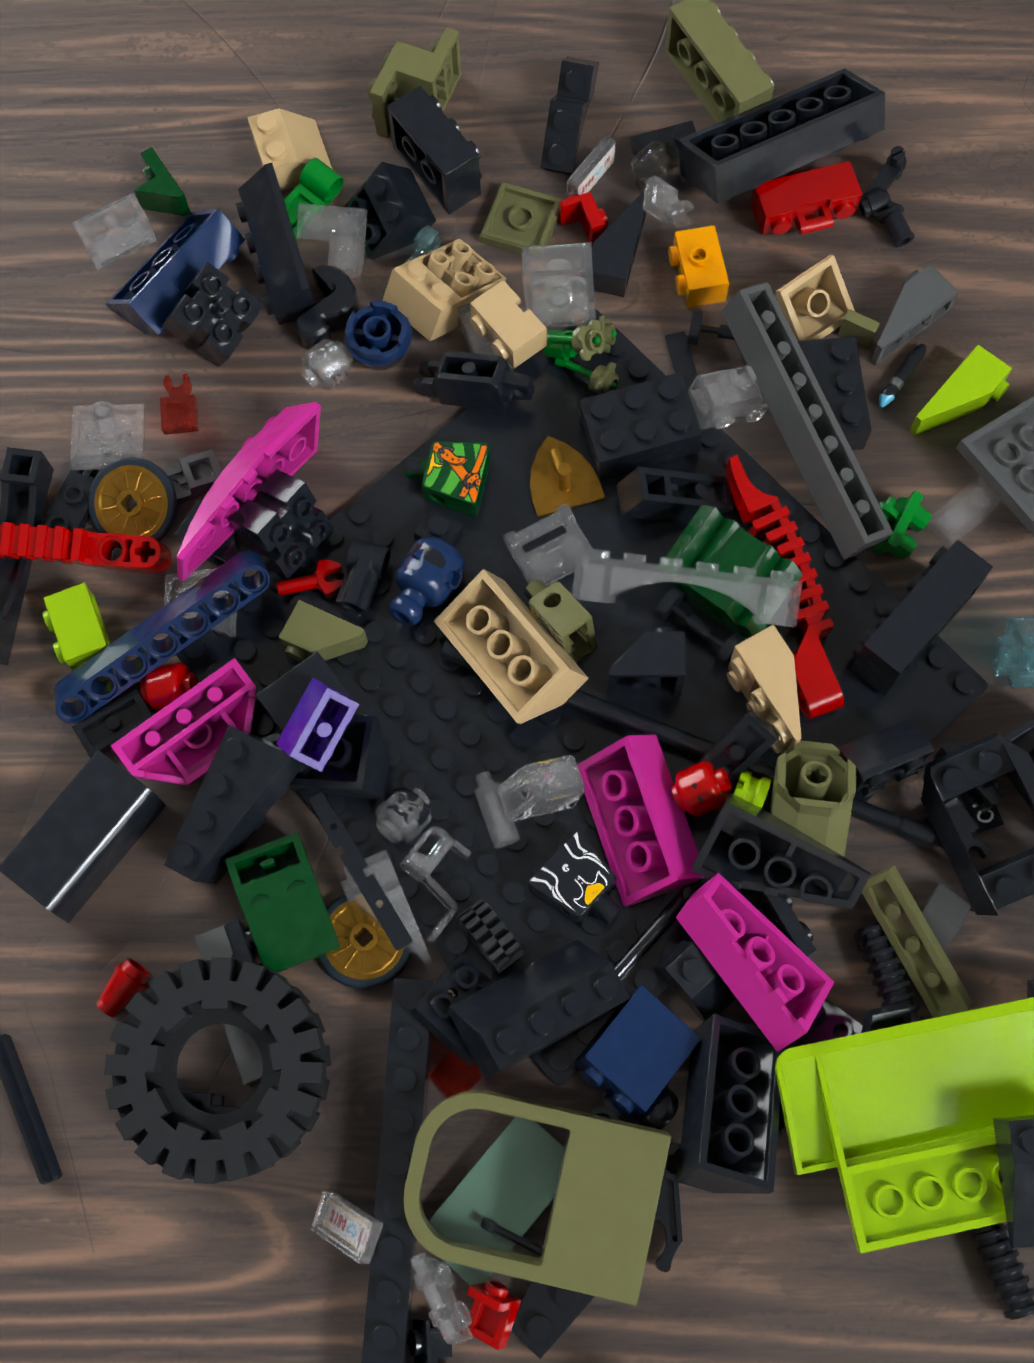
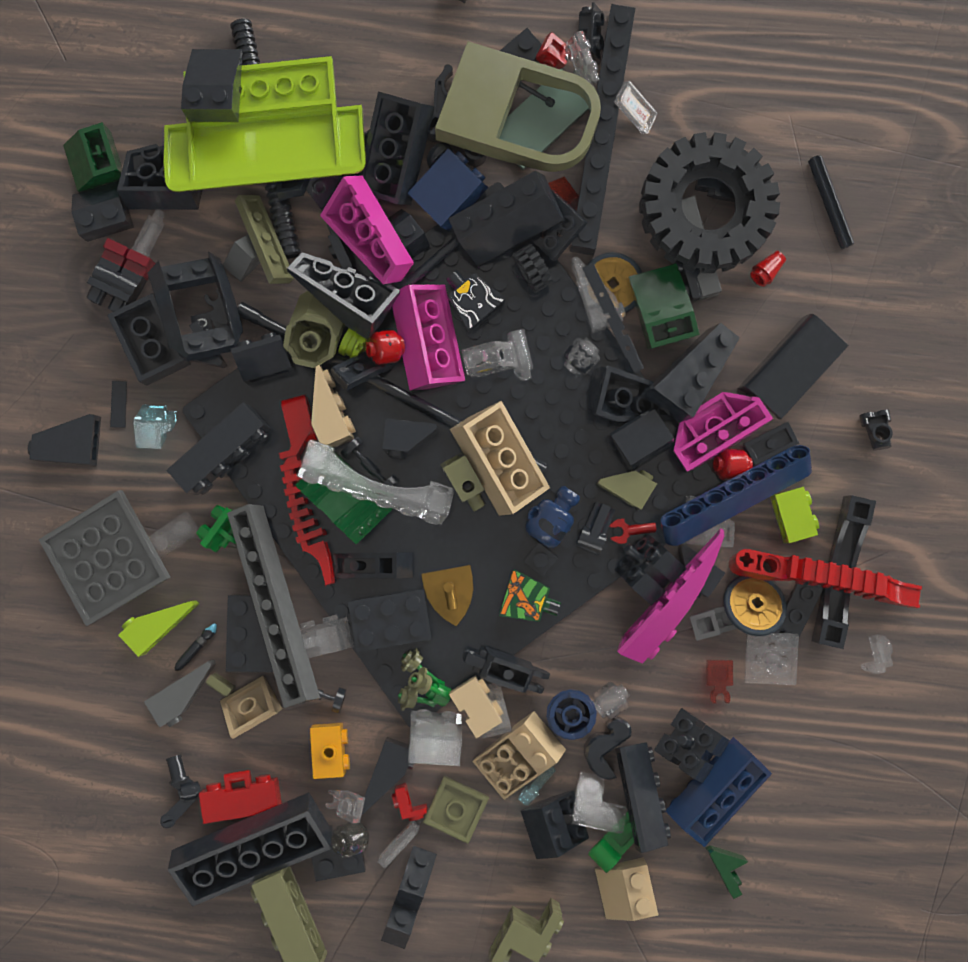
camera: 175 degrees left, 15 degrees up
(114, 231) = (763, 828): clear brick -> none
(317, 724) = (634, 409): dark purple brick -> none
(421, 866) = (569, 318): clear piece -> none
(435, 149) = (515, 871): black brick -> none
(553, 558) = (460, 531): clear plate -> none
(681, 356) = (351, 677): black window -> none

